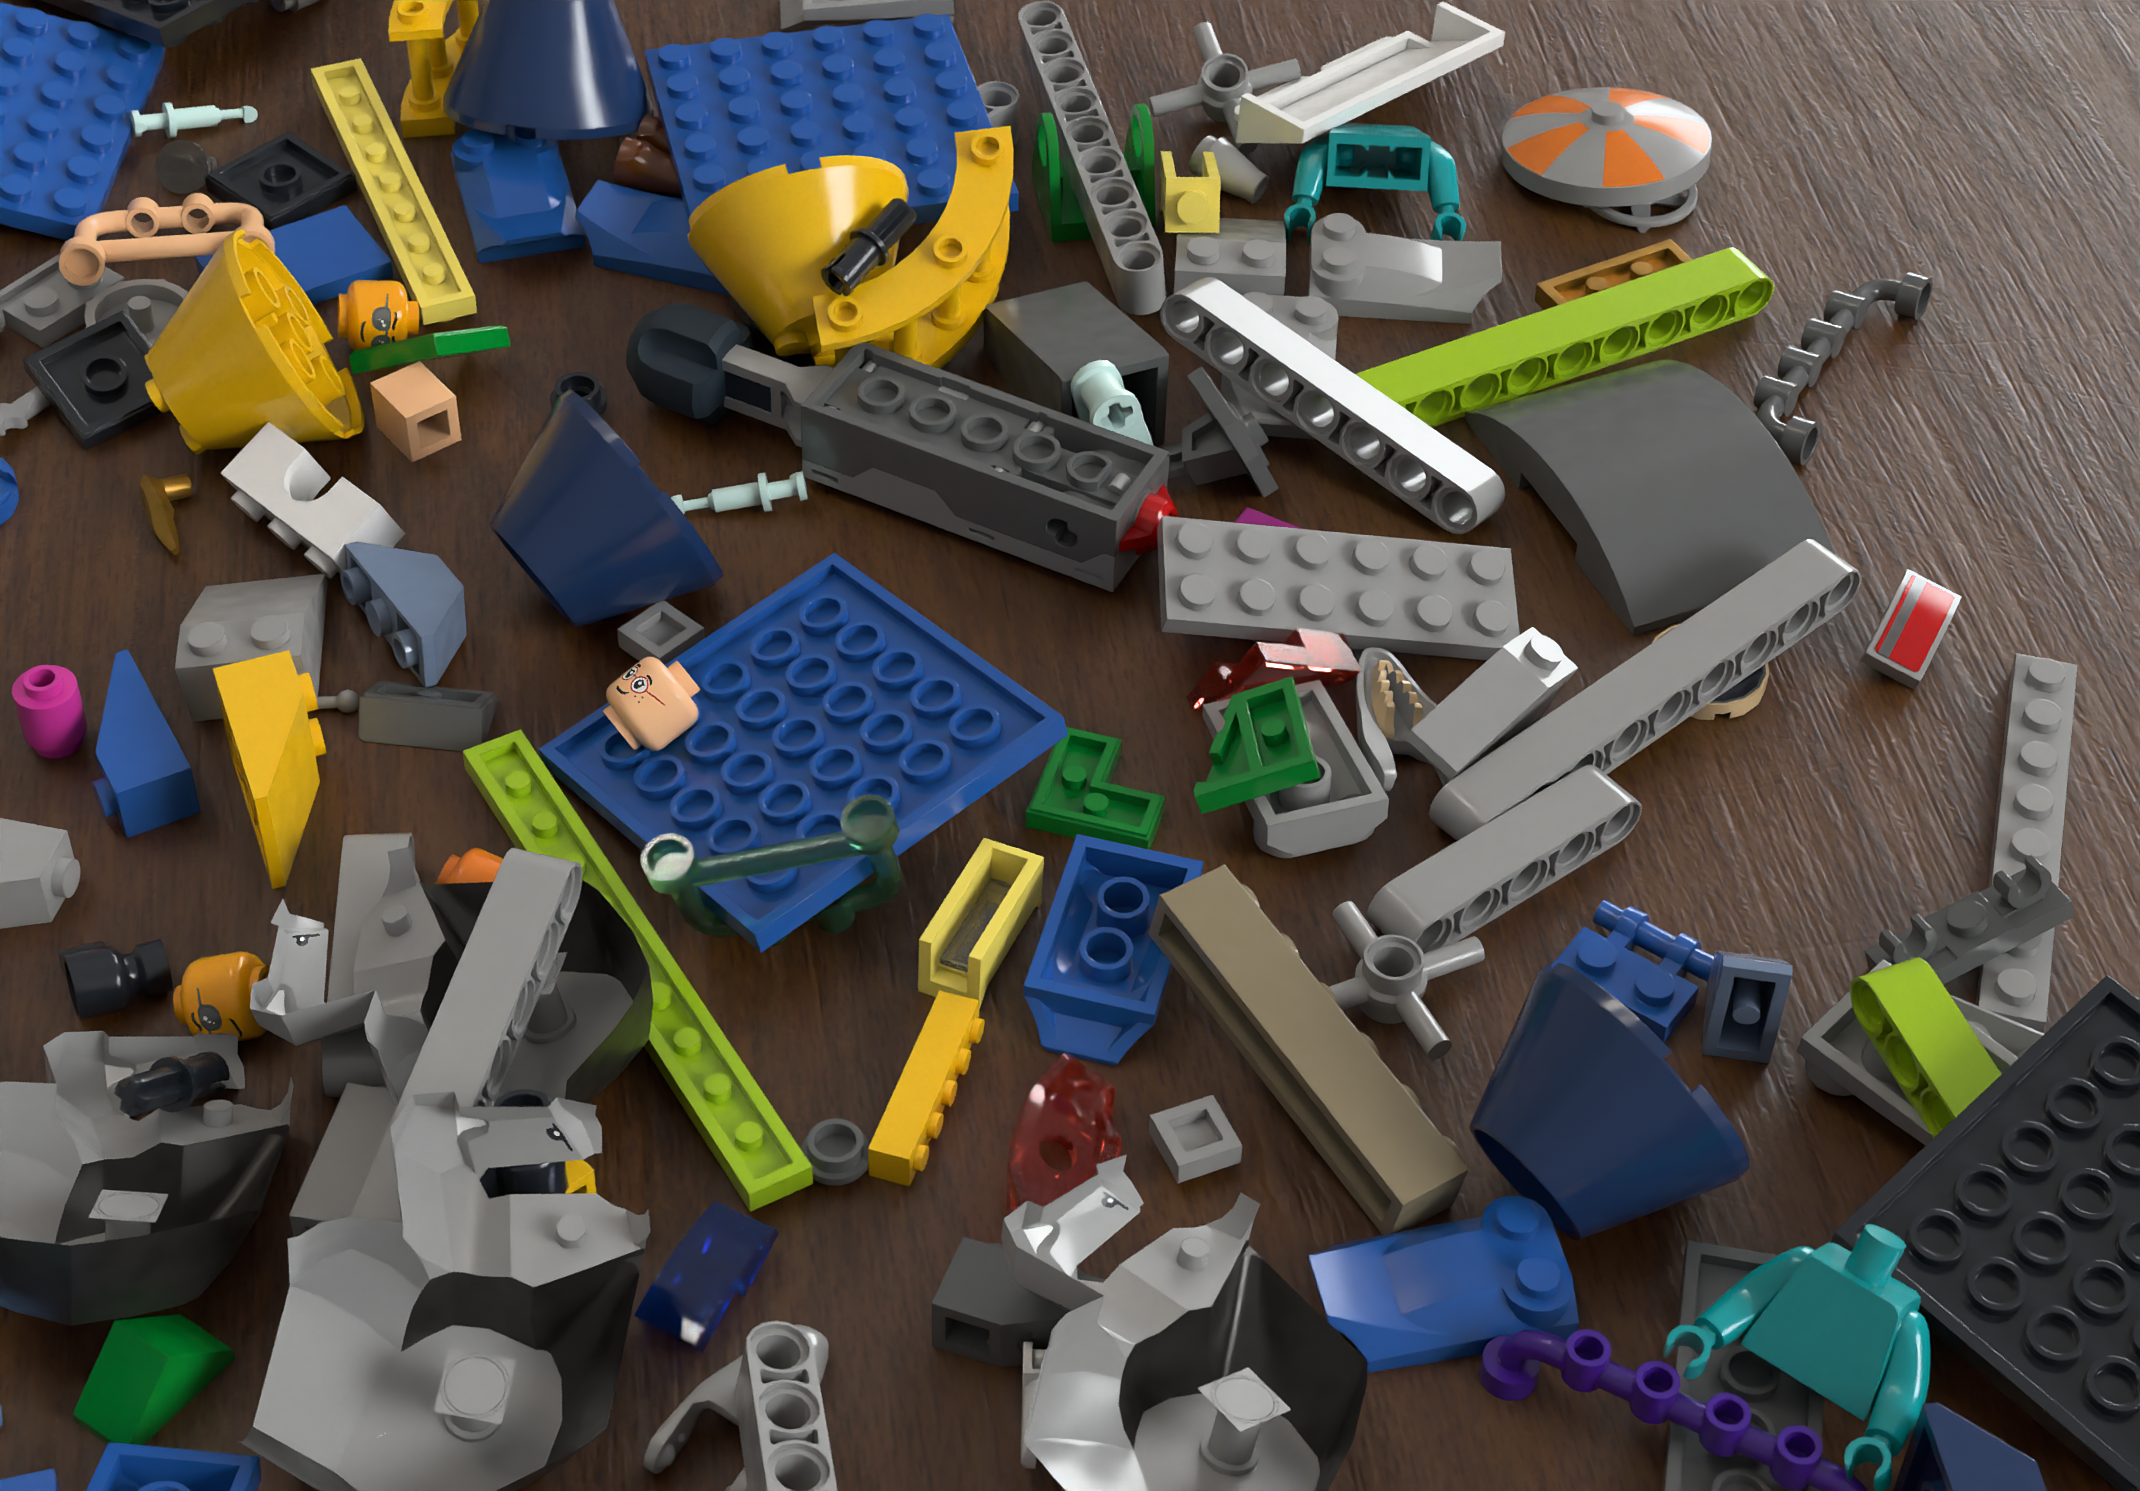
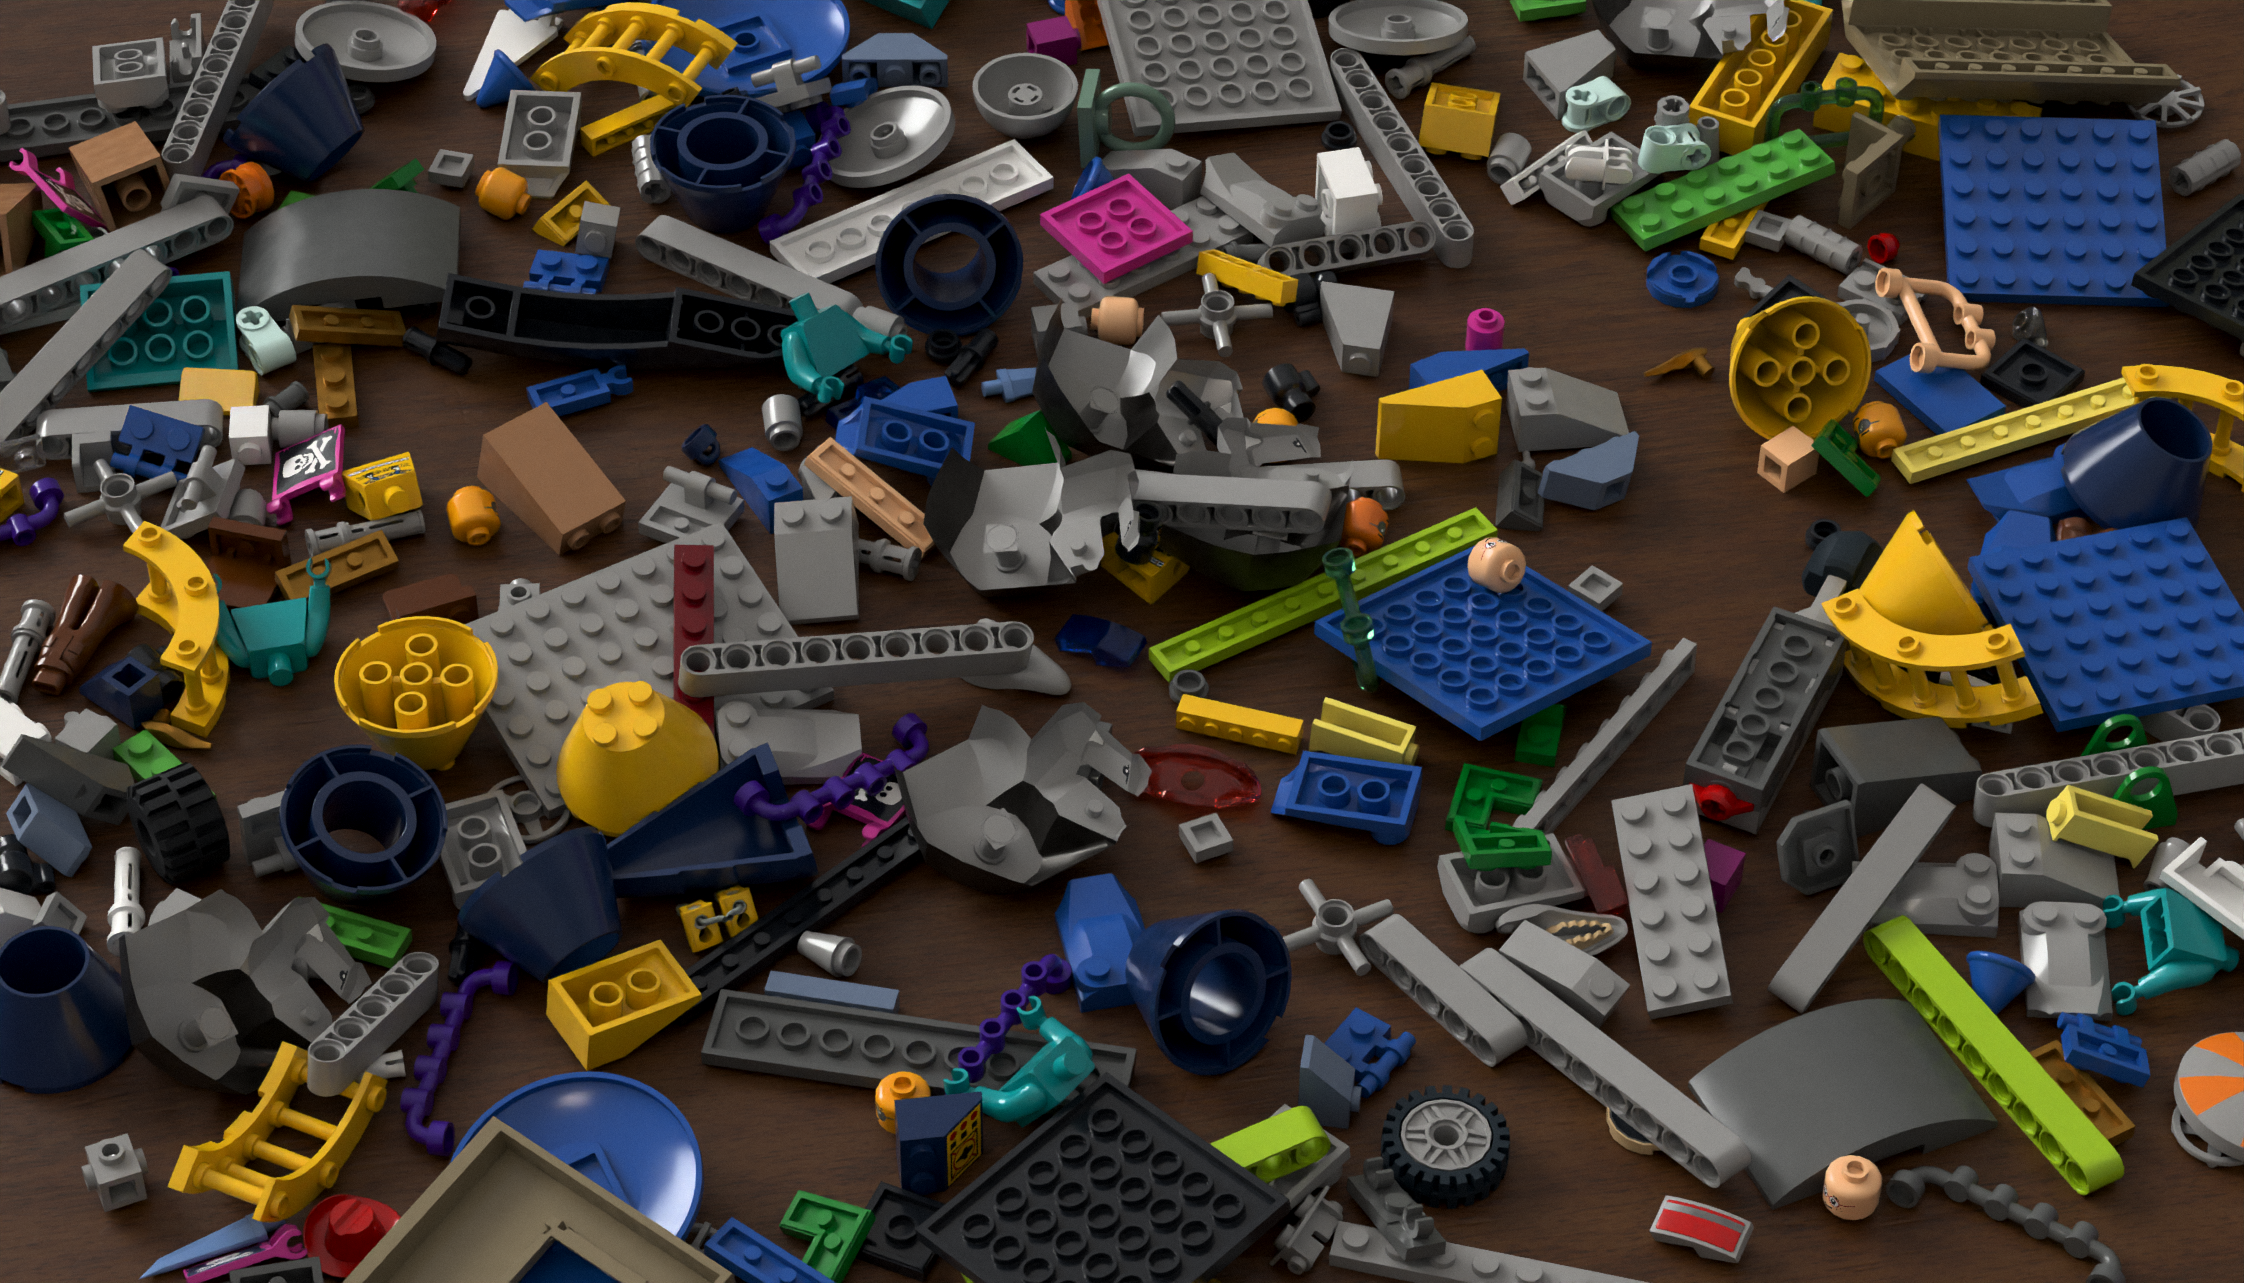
camera: 90 degrees right, 0 degrees up
(187, 118) = (2085, 314): light aqua piece -> none
(281, 480) = (1664, 428): white arch -> none
(596, 524) = (1664, 532): dark blue cone -> none
(748, 494) = (1744, 630): light aqua piece -> none
(868, 247) = (1892, 599): black axle -> none
(1034, 659) = (1611, 740): none -> light grey plate
(1105, 402) = (1812, 772): light aqua piece -> none
(1308, 1051) = (1272, 858): dark tan brick -> none
(1440, 317) = (1997, 978): none -> blue hat
(1559, 245) = (2103, 1049): none -> blue plate
(1814, 878) = (1446, 1146): none -> wheel
(1829, 473) = (1852, 1187): none -> light nougat head

